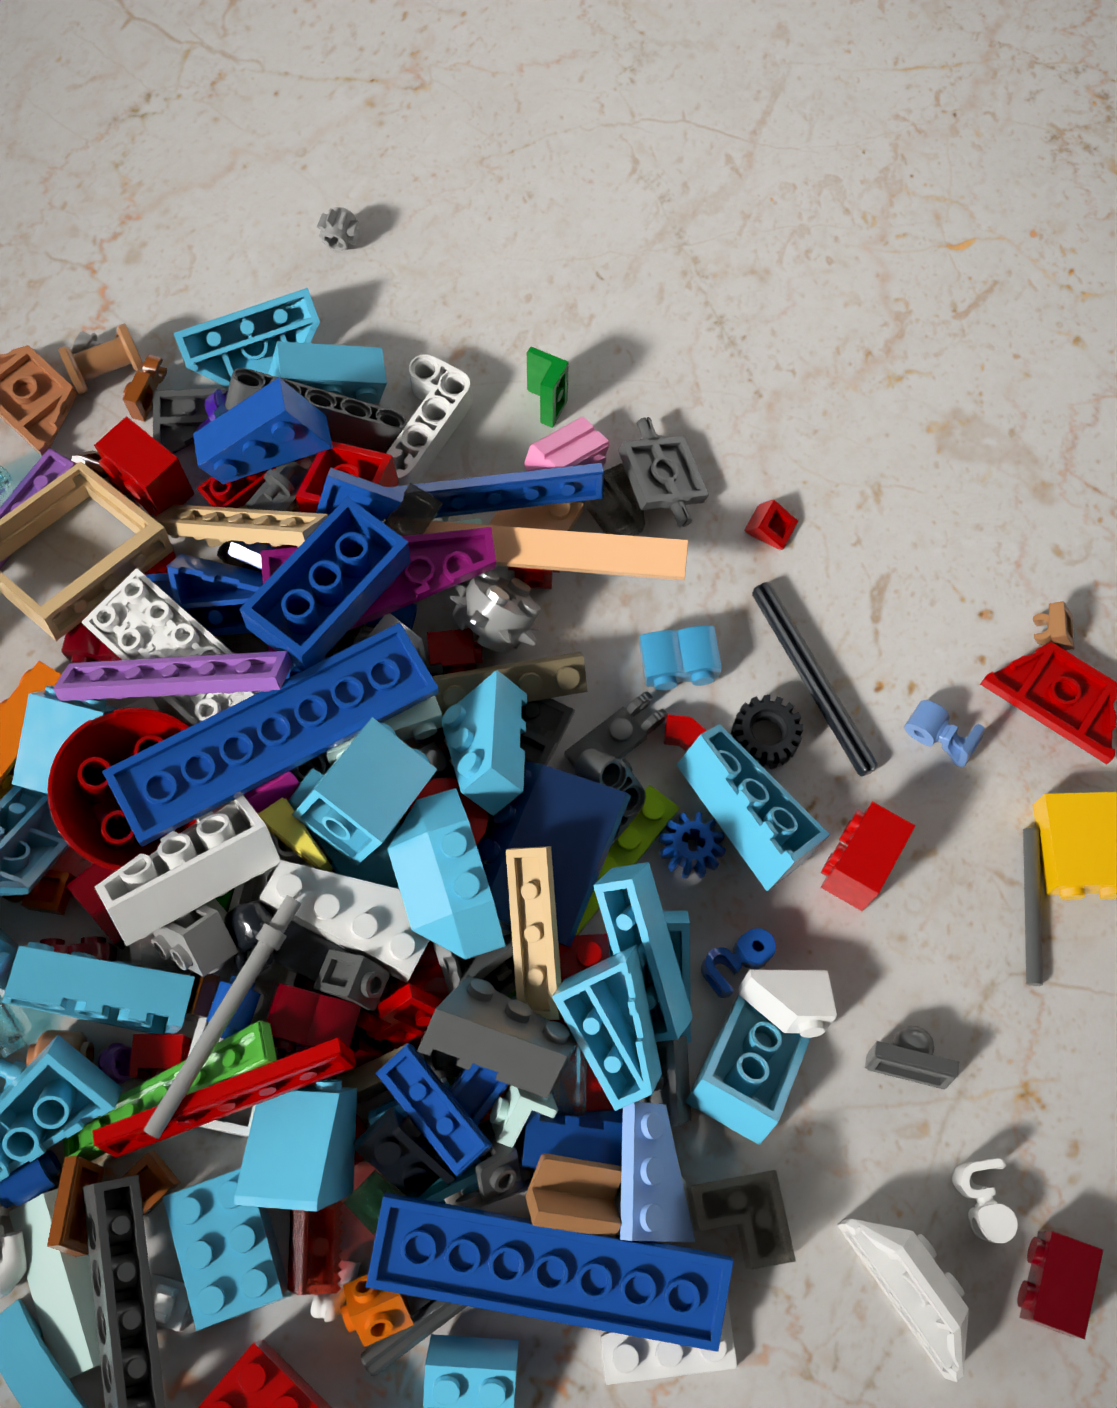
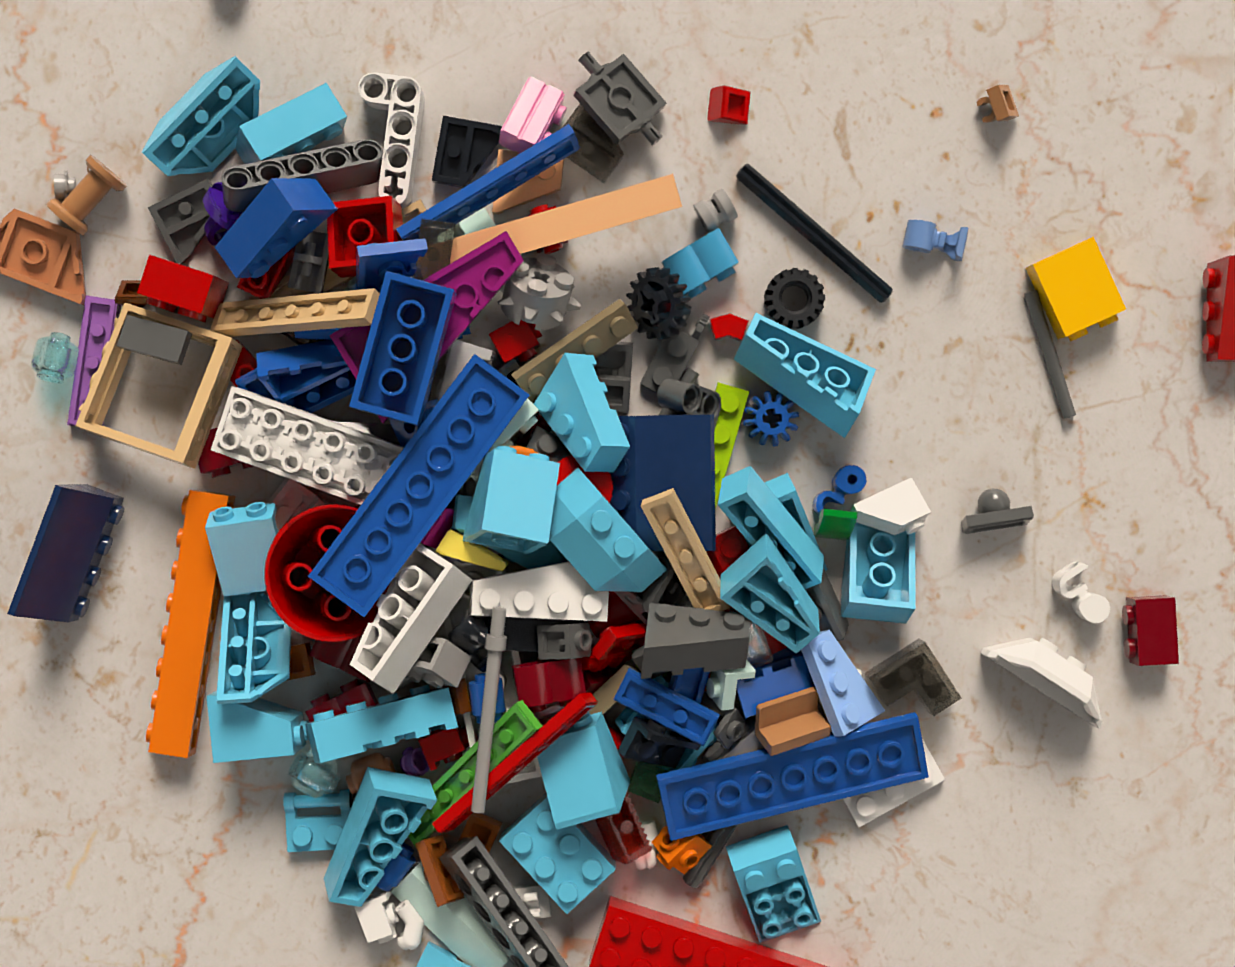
camera: 20 degrees left, 20 degrees up
(87, 500) = (154, 339): none -> dark grey tile
(139, 392) = (136, 212): dark orange plate -> none
(174, 676) = (317, 473): medium lavender plate -> none
(486, 454) = (463, 150): none -> black wing
(548, 379) = (487, 51): green panel -> none
(619, 674) = (658, 303): none -> black gear
(718, 612) = (708, 214): none -> light grey wheel
(720, 986) = (835, 524): none -> green slope
(867, 857) = (910, 375): red brick -> none
(1062, 696) = (1021, 165): red wing -> none

